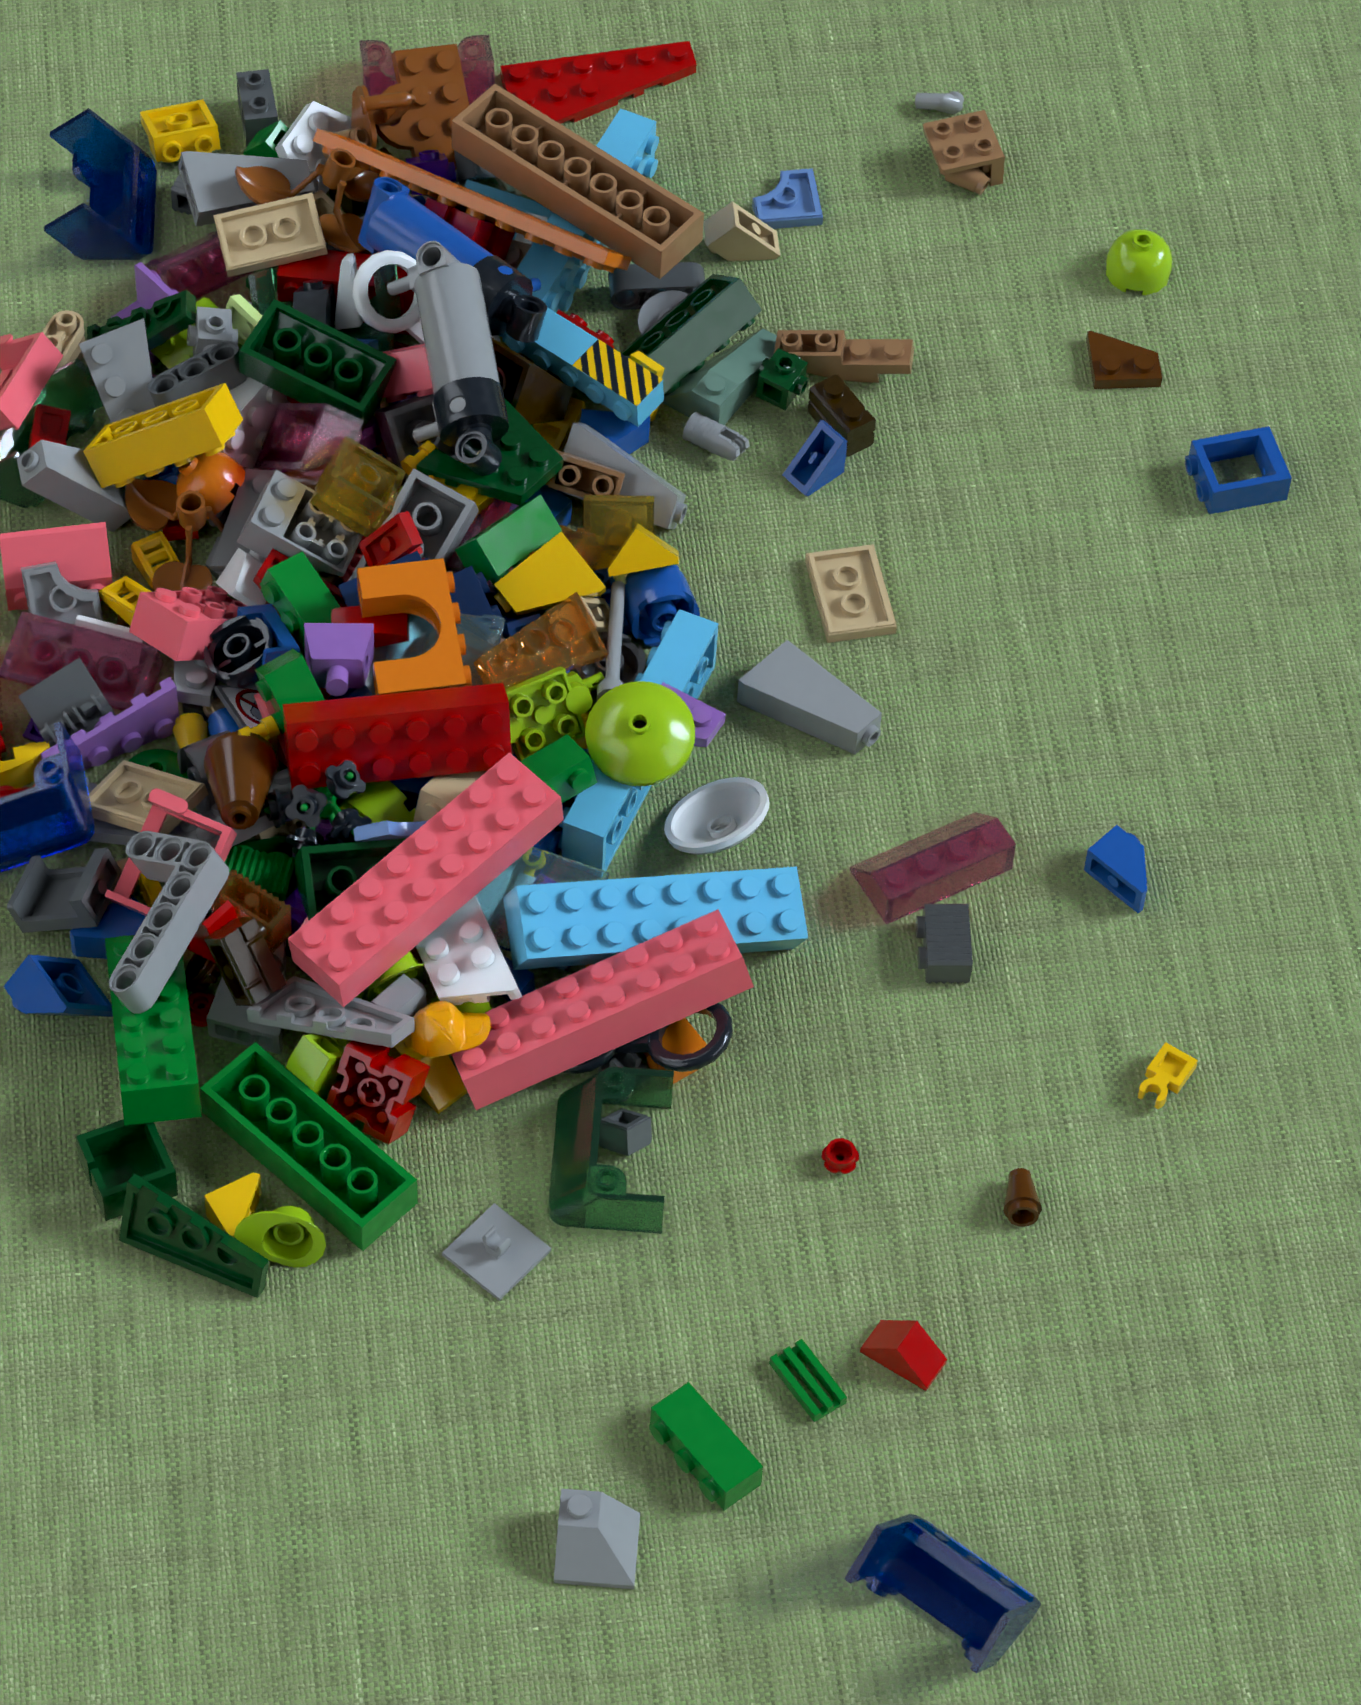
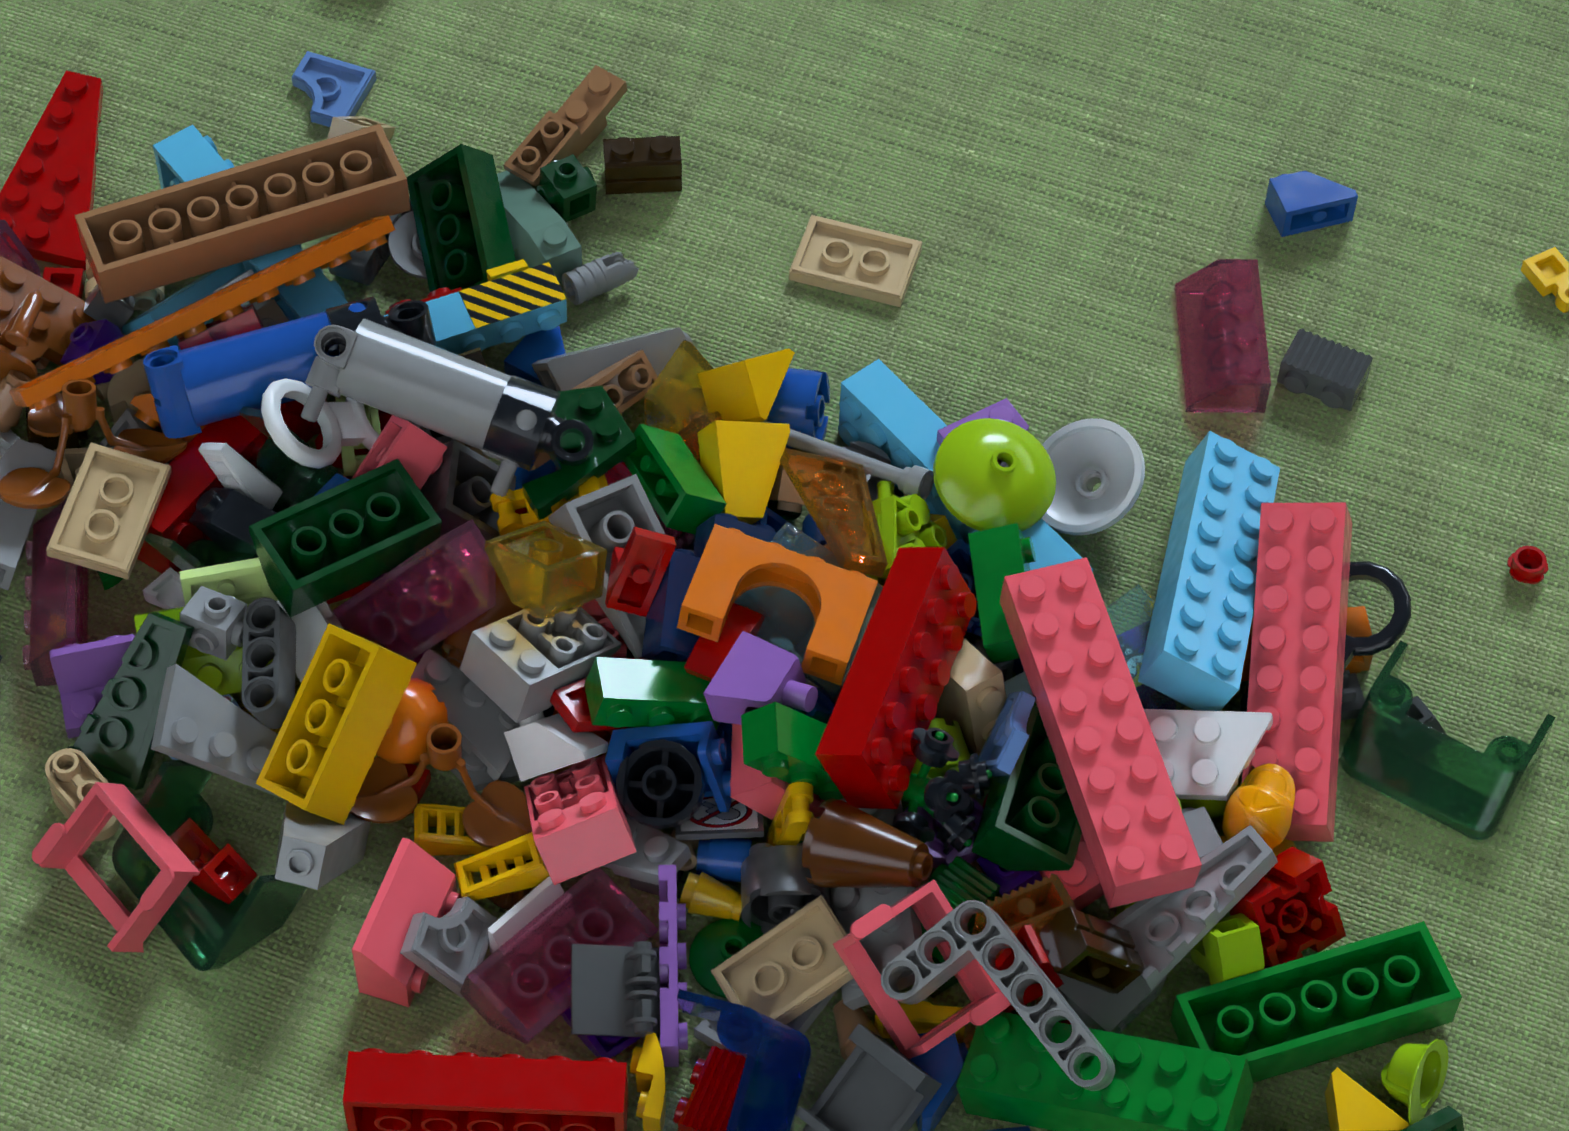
camera: 60 degrees left, 0 degrees up
(496, 1251) = (1502, 903): light grey piece -> none
(810, 699) = (975, 345): light grey slope -> none
(818, 460) = (684, 207): blue slope -> none

